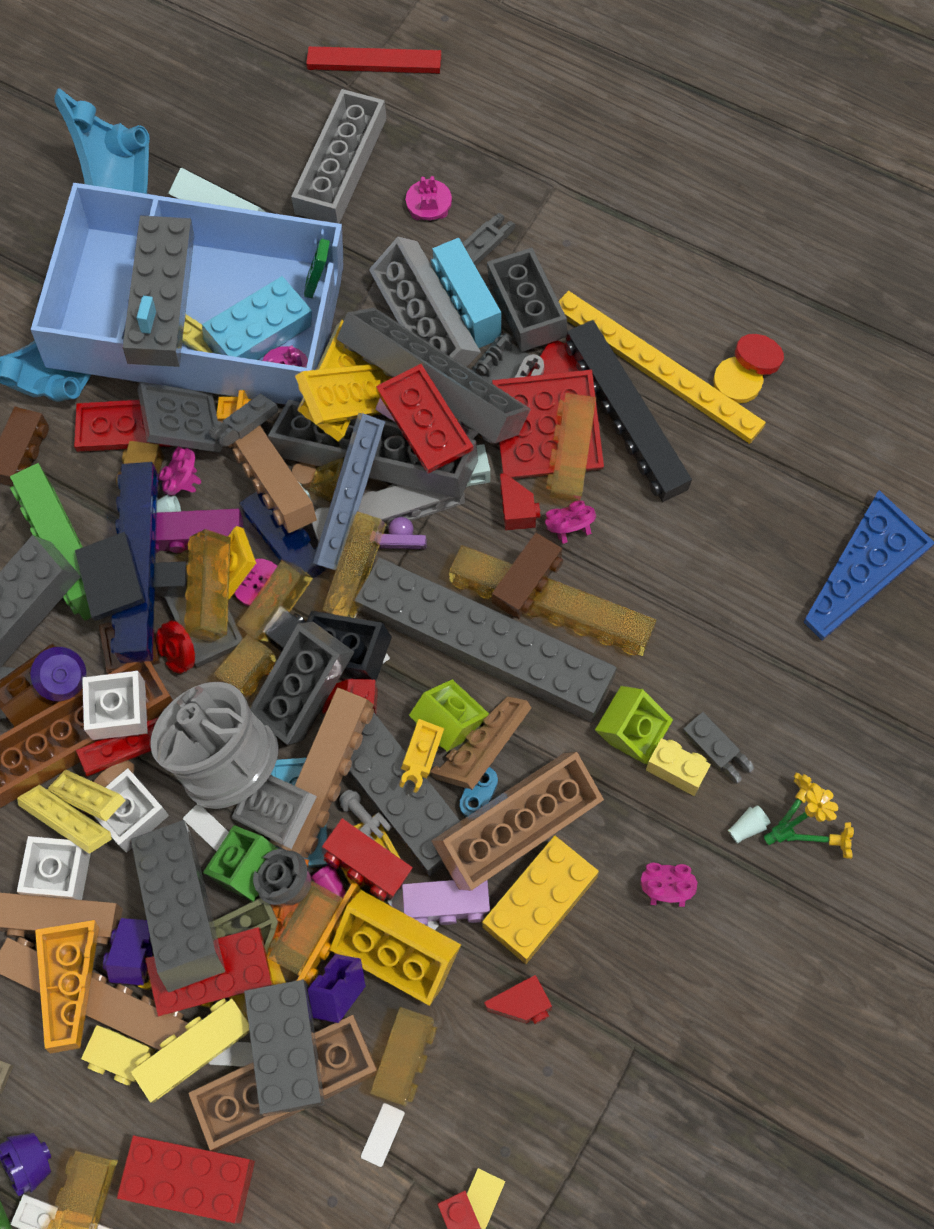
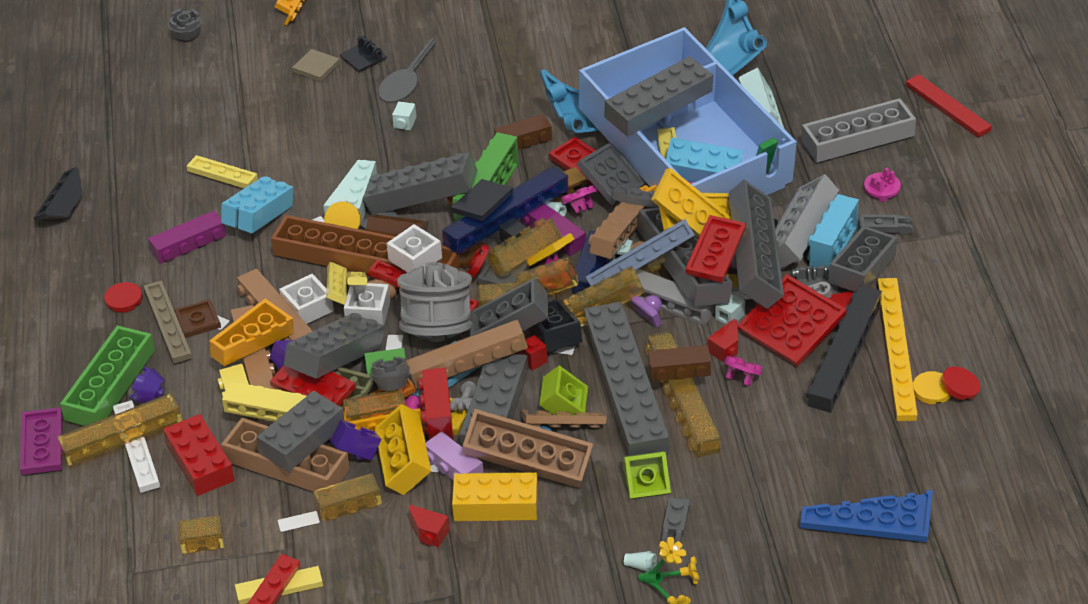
camera: 50 degrees right, 25 degrees down
(58, 673) = (406, 217): dark purple cone -> none
(146, 314) = (630, 91): medium azure tile -> none
(276, 810) = (426, 347): light grey tile -> none
(421, 753) = (521, 385): yellow plate -> none
(572, 447) = (787, 334): clear yellow brick -> none
(668, 883) = (563, 541): dark pink plate -> none
(678, 766) = (640, 506): light yellow brick -> none

